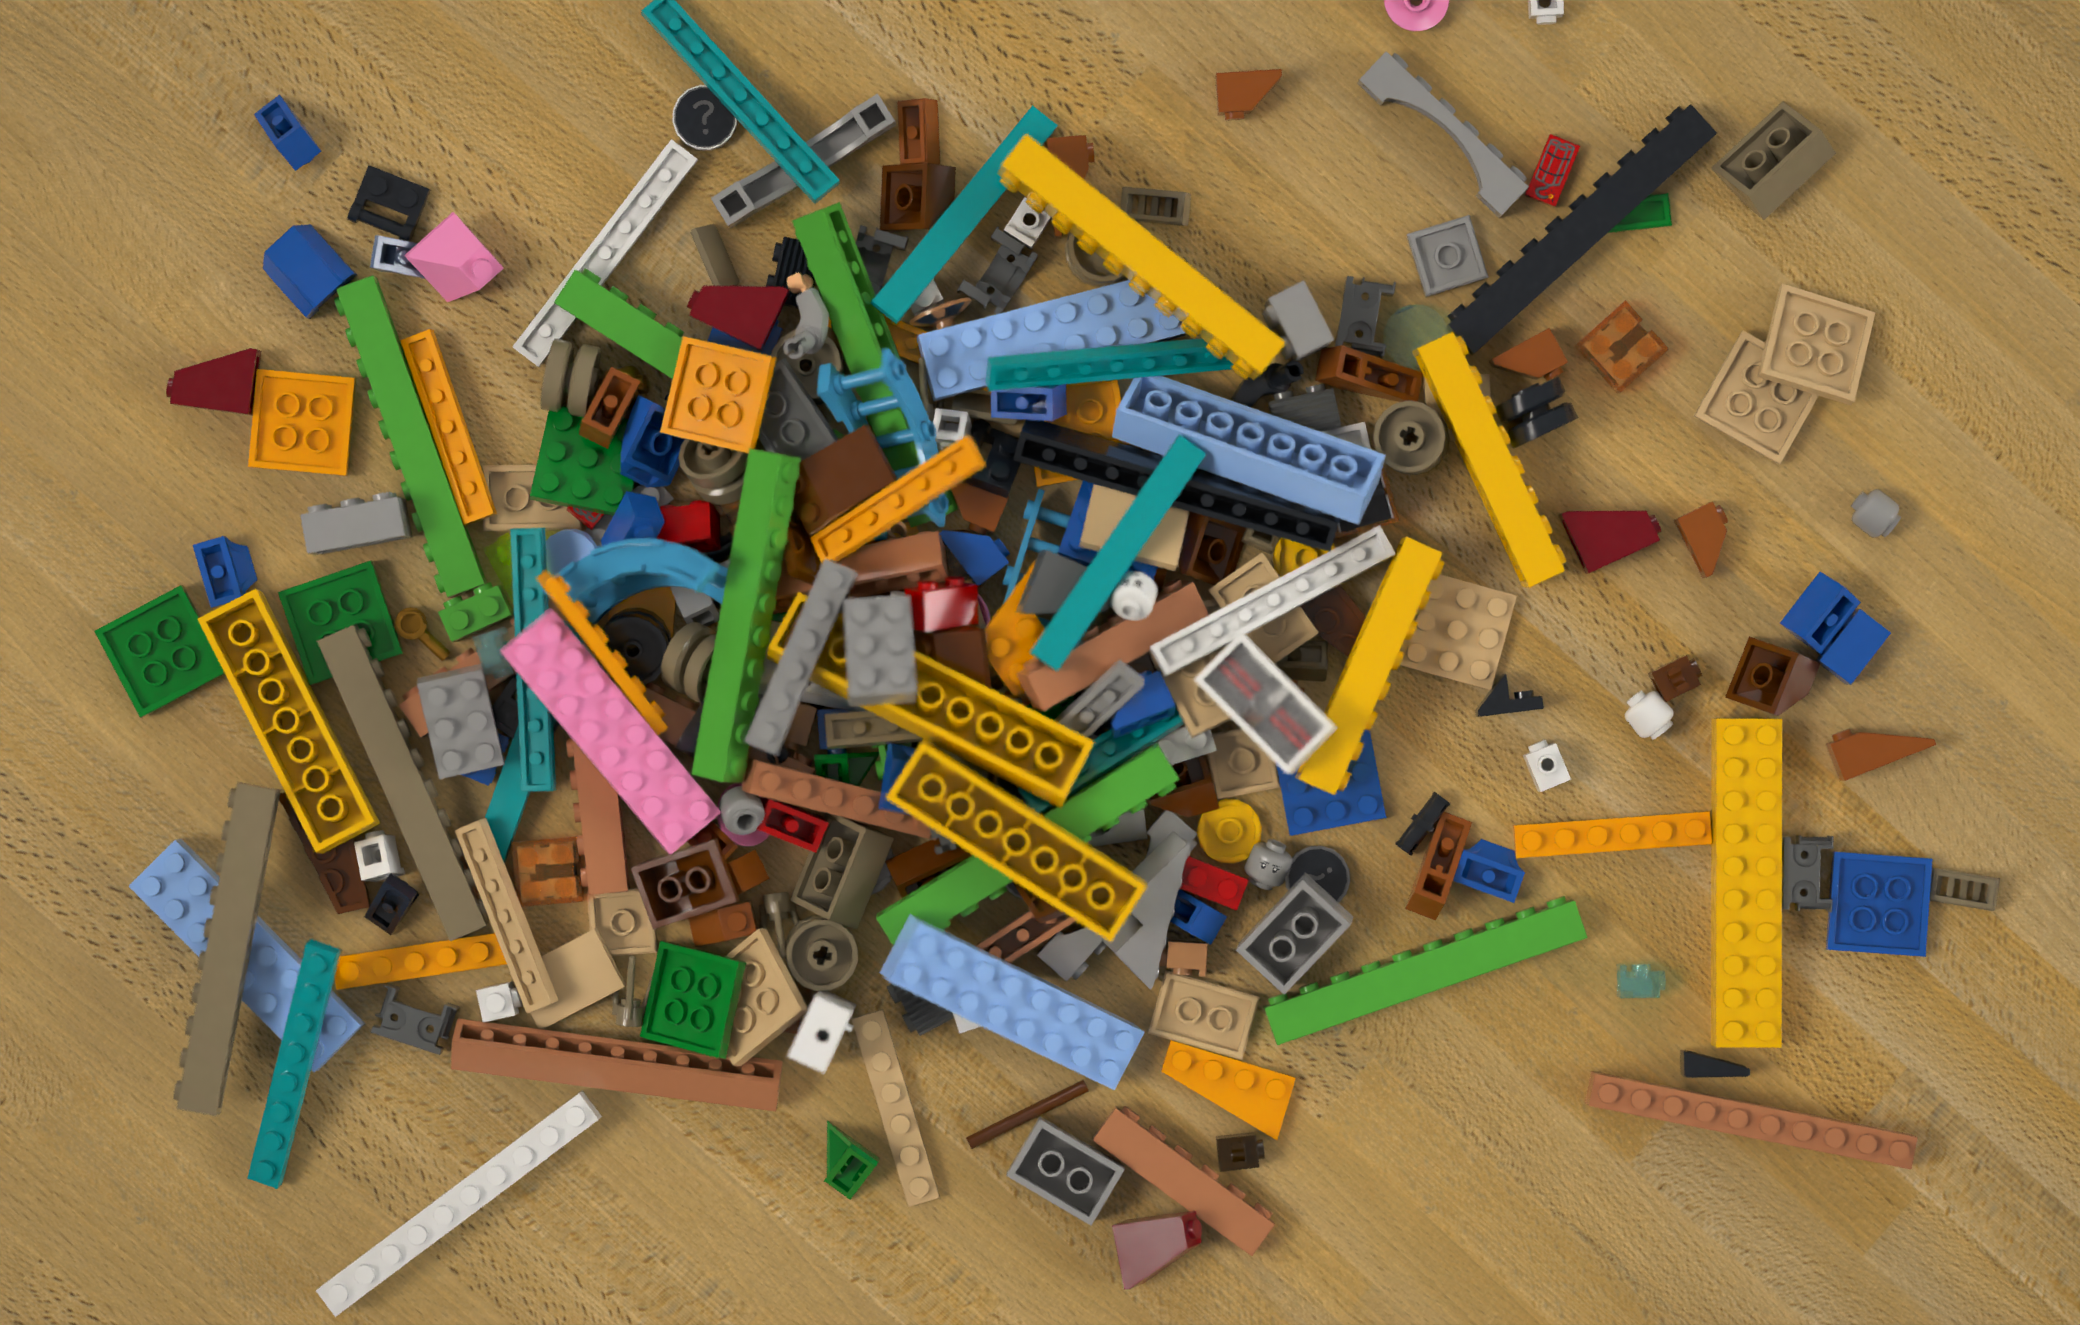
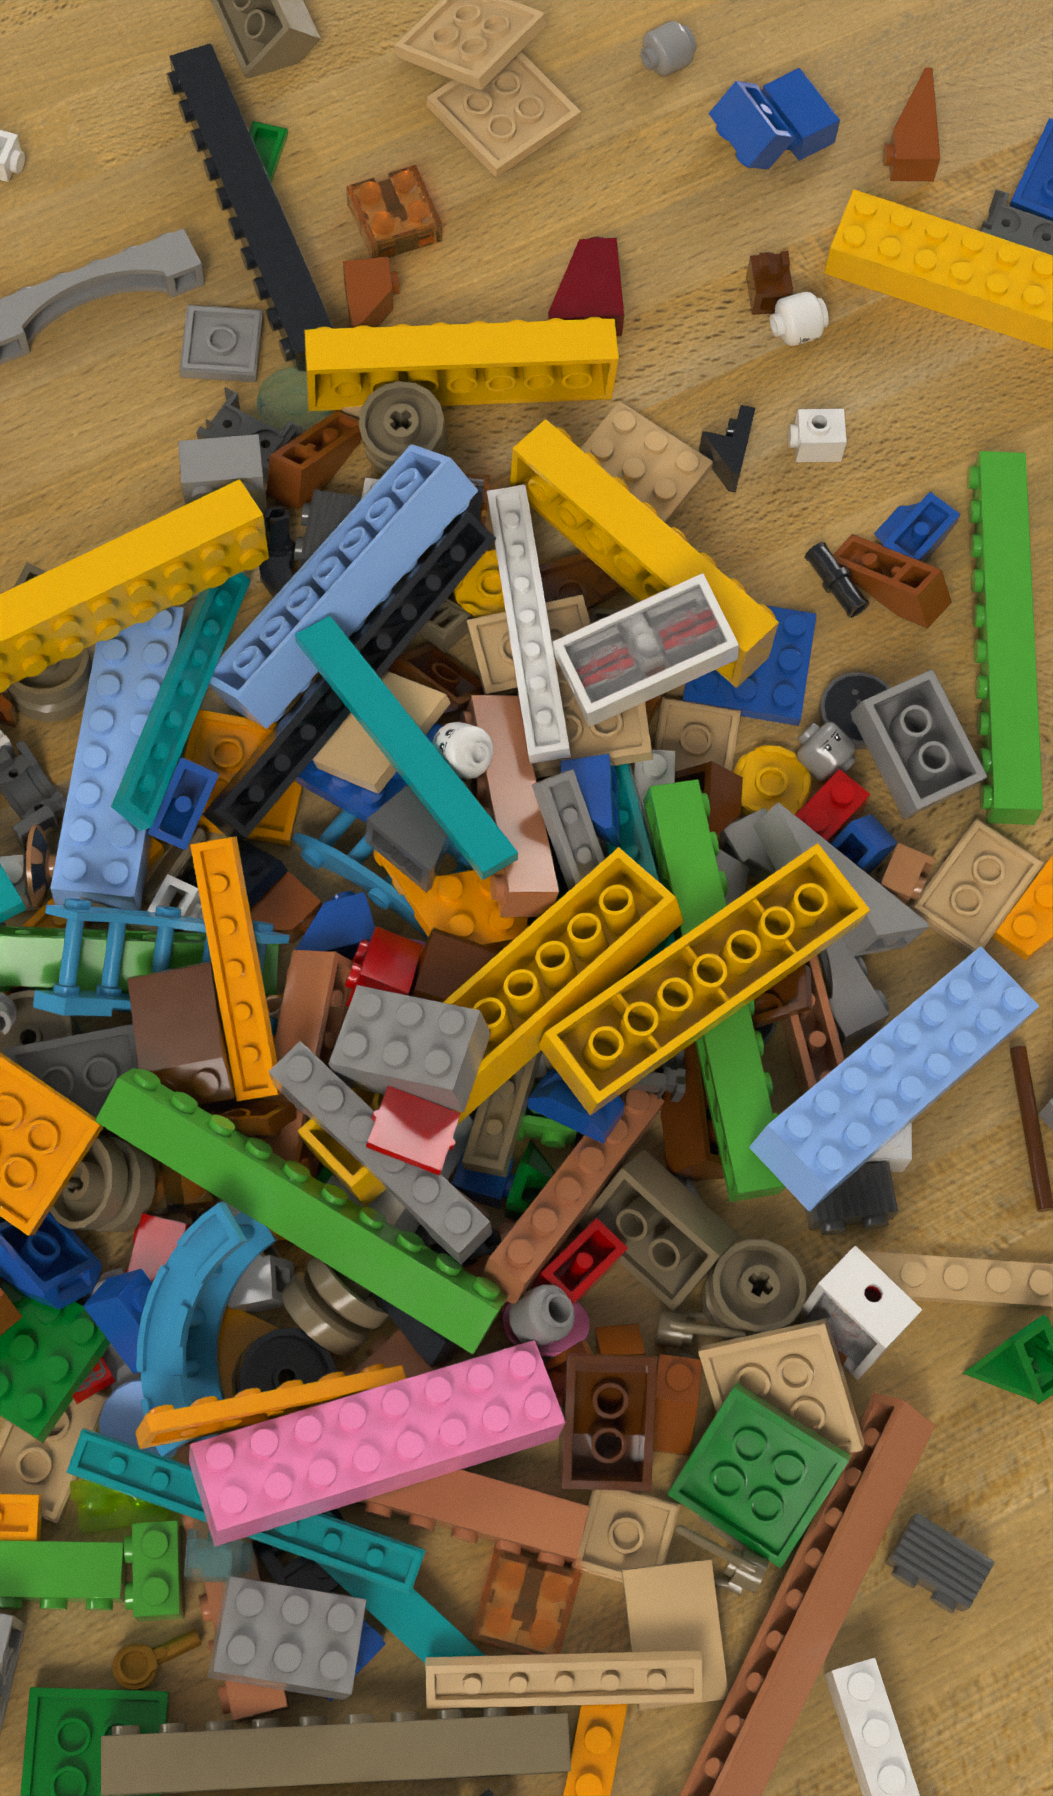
camera: 75 degrees left, 20 degrees down
(498, 1001) = (672, 1737): white brick -> none
(682, 1145) = (939, 1564): none -> dark grey brick
(819, 676) = (413, 1130): none -> piece
(1535, 411) = (431, 302): black wheel -> none
(1552, 170) = (176, 212): tile -> none
(1612, 834) = (915, 405): light orange plate -> none
(1704, 535) = (629, 206): dark orange slope -> none
(1771, 677) = (801, 195): reddish brown slope -> none

